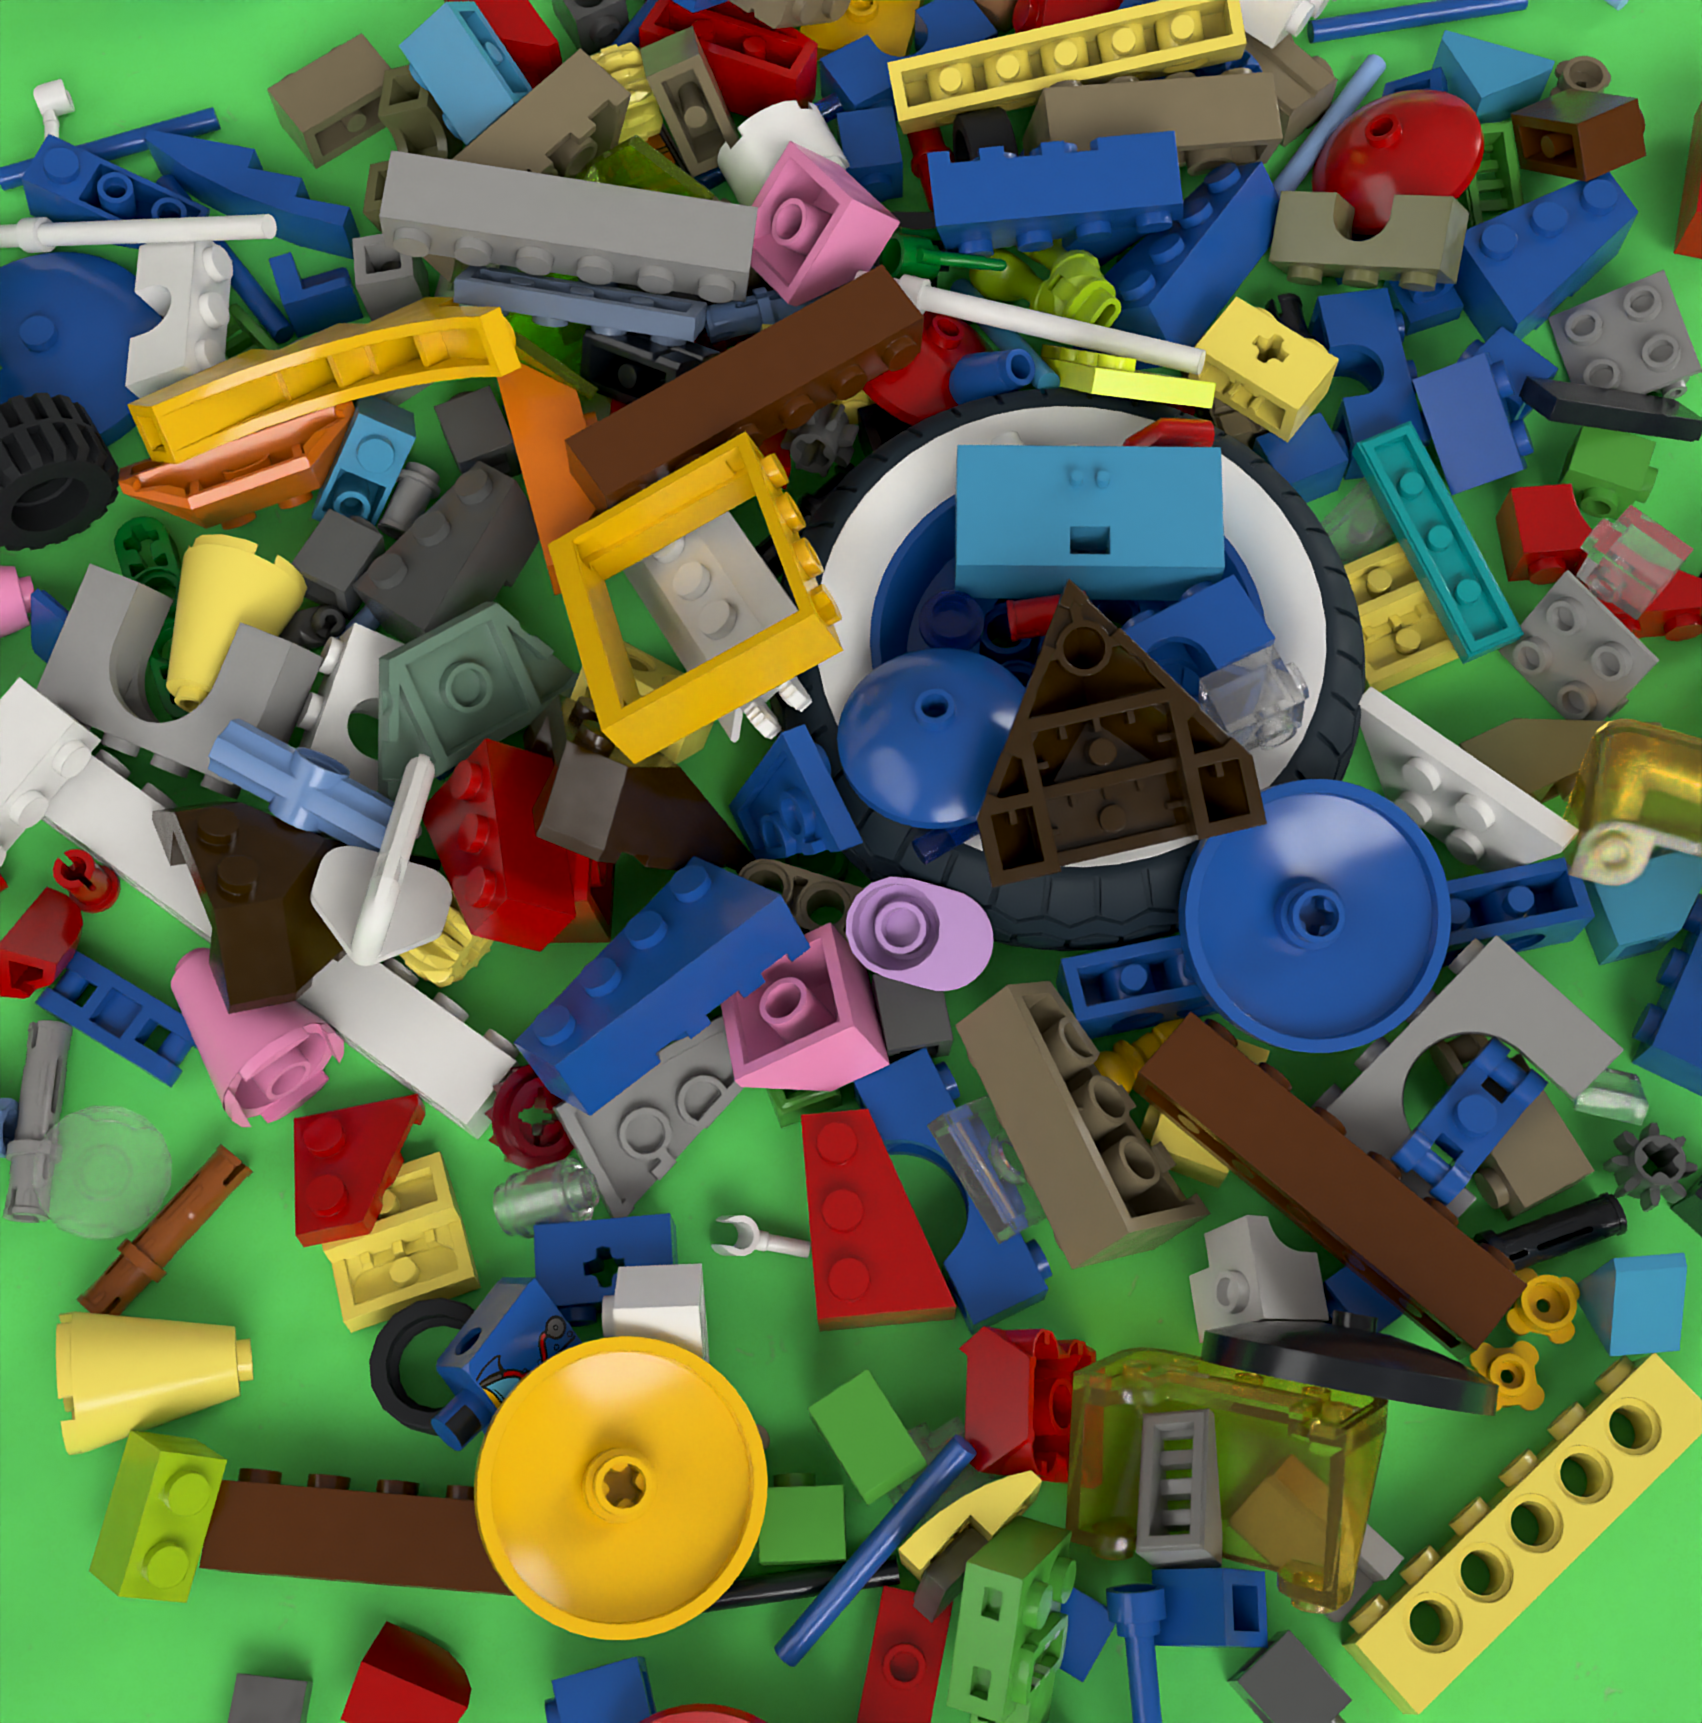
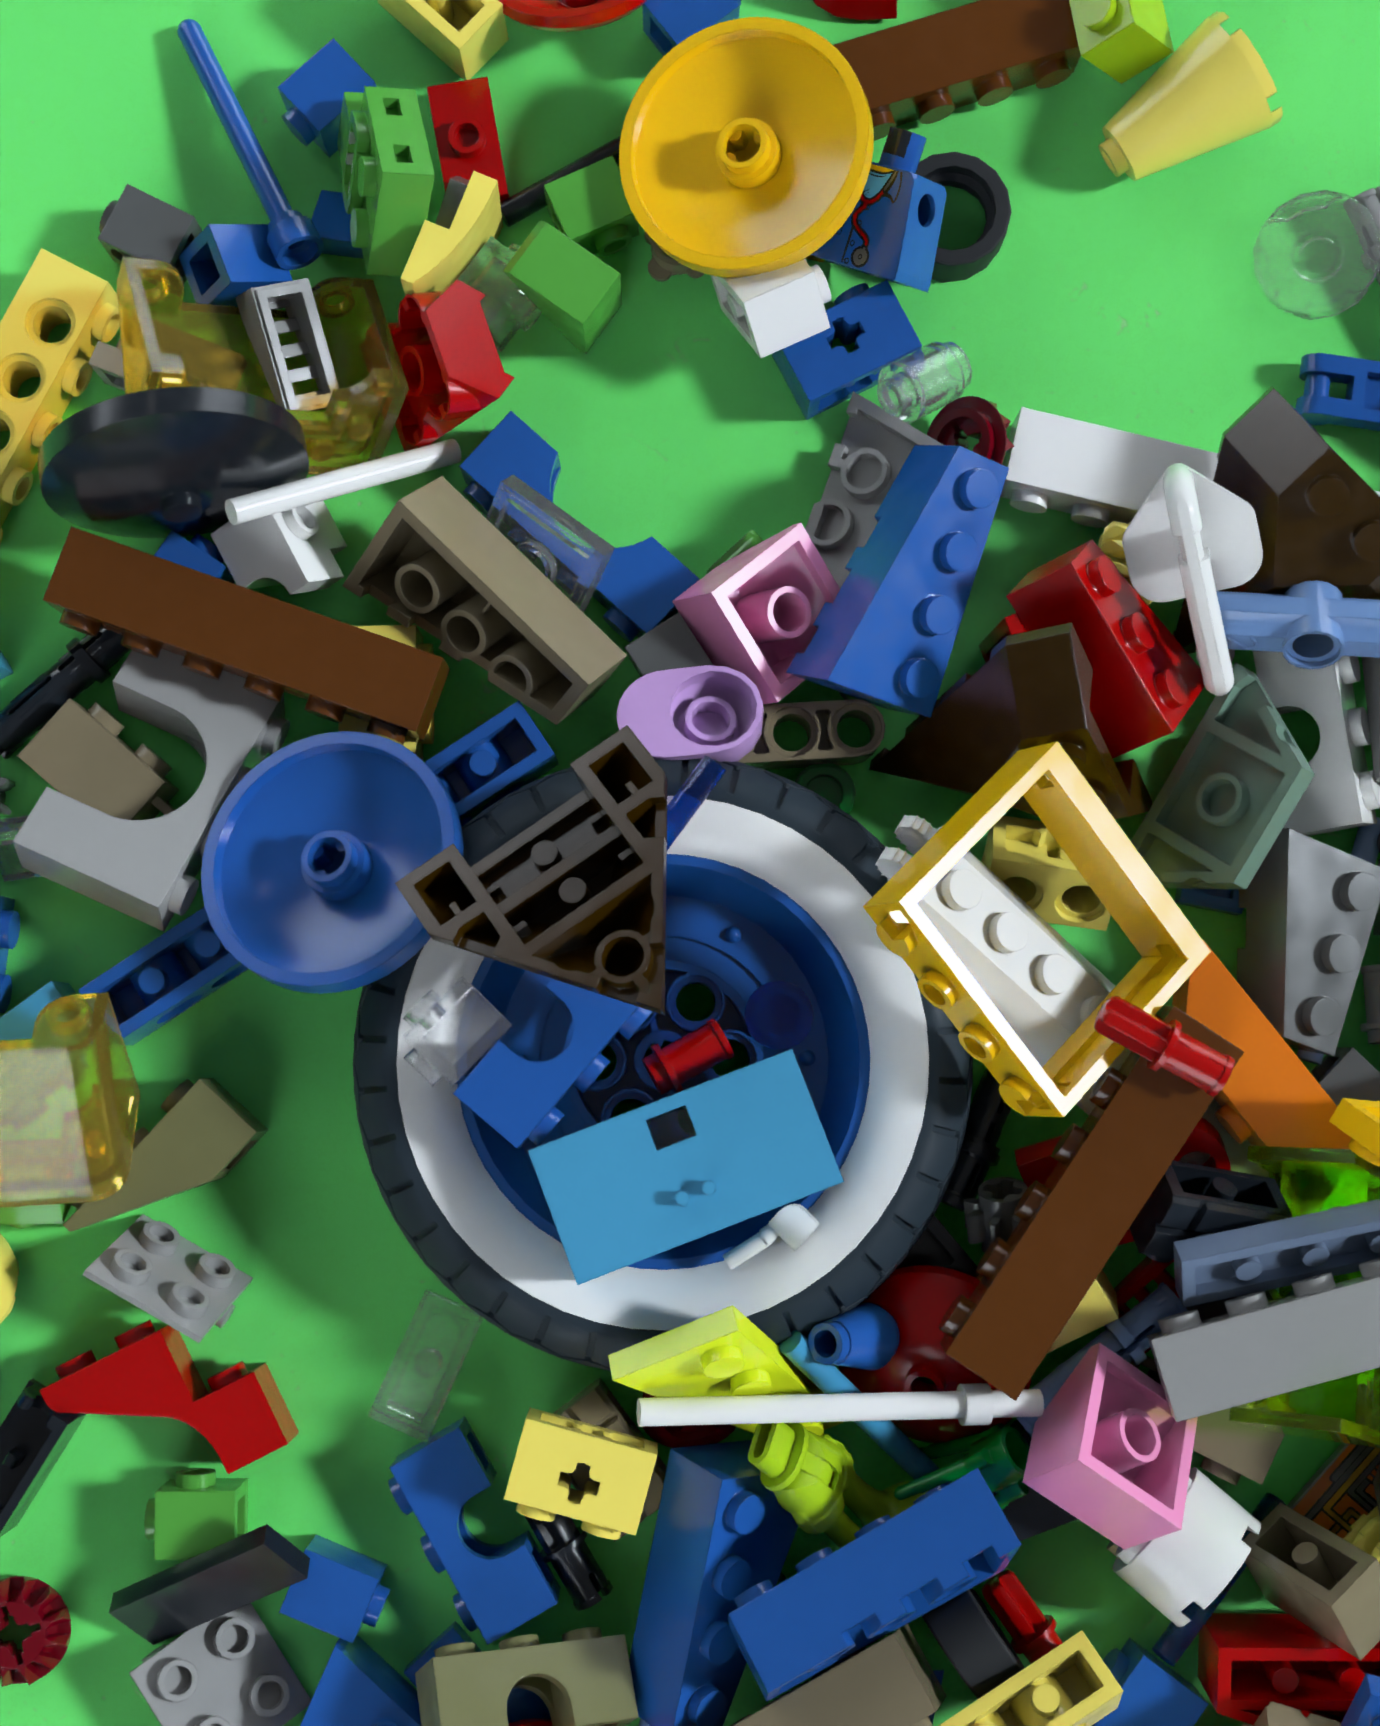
camera: 150 degrees right, 15 degrees up
(165, 1235) = (1241, 208): dark orange pin -> none
(259, 1057) = (1231, 384): bright pink cone -> none
(347, 1164) = (1110, 344): red wing -> none
(411, 1253) = (1038, 307): light yellow slope -> none
(631, 458) = (1164, 1045): none -> red axle
(752, 1239) = (734, 425): white hand -> none
(793, 802) = (862, 797): blue wing -> none
(864, 1234) = (638, 460): red wedge -> none
(872, 150) = (1103, 1607): blue brick -> none
(875, 1550) = (521, 205): blue bar -> none
(919, 765) = (802, 893): blue dish -> none
(1126, 1059) = (472, 699): yellow bar -> none
(1174, 433) = (643, 1303): red arm -> none
(1180, 1313) = (341, 481): none -> white bar
(1310, 460) = (503, 1402): blue brick -> none
(1396, 620) = (361, 1273): light yellow slope -> none
(1437, 542) = (345, 1353): teal tile -> none
(1455, 795) = (219, 1055): white wing -> none
(1468, 1121) = (139, 740): blue plate -> none
(1472, 422) = (348, 1505): blue brick -> none
(1518, 1360) = (31, 557): yellow plate -> none
(1561, 1298) = (17, 629): yellow plate -> none
(1631, 561) = (140, 1387): clear brick -> none

